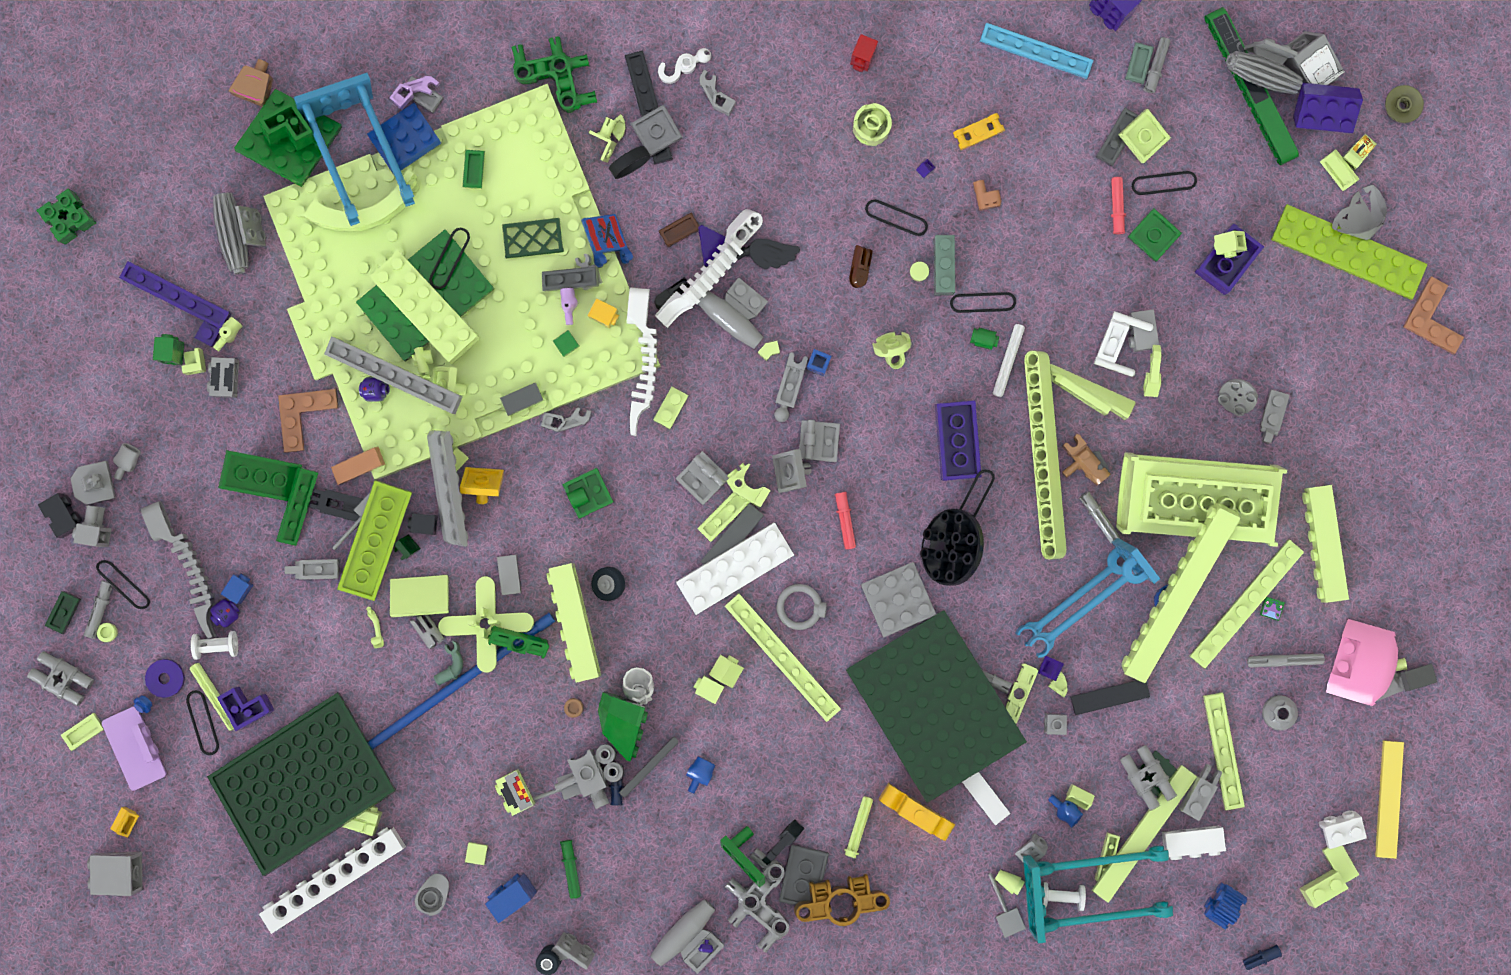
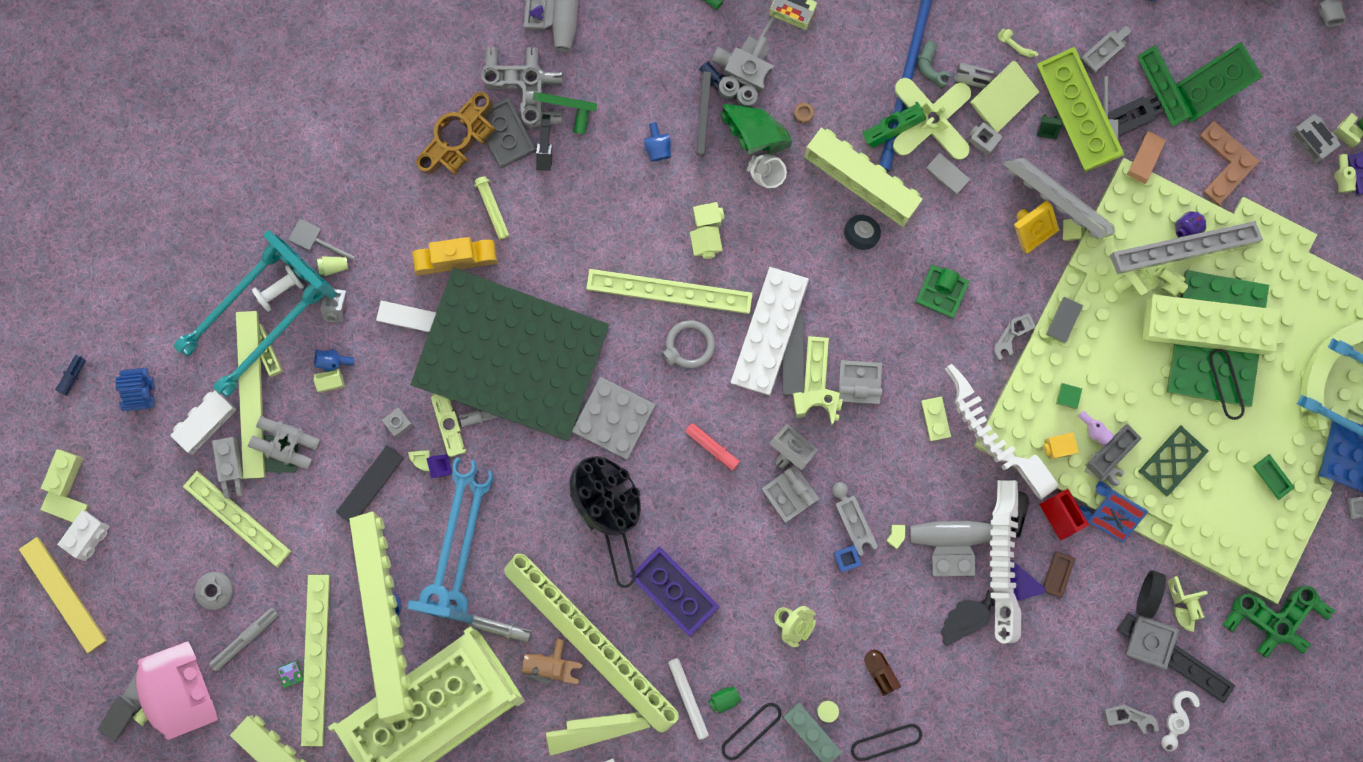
camera: 140 degrees right, 5 degrees down
(423, 524) = (1052, 155): black brick -> none
(455, 572) = (991, 136): none -> light grey brick
(641, 266) = (1064, 514): none -> red brick

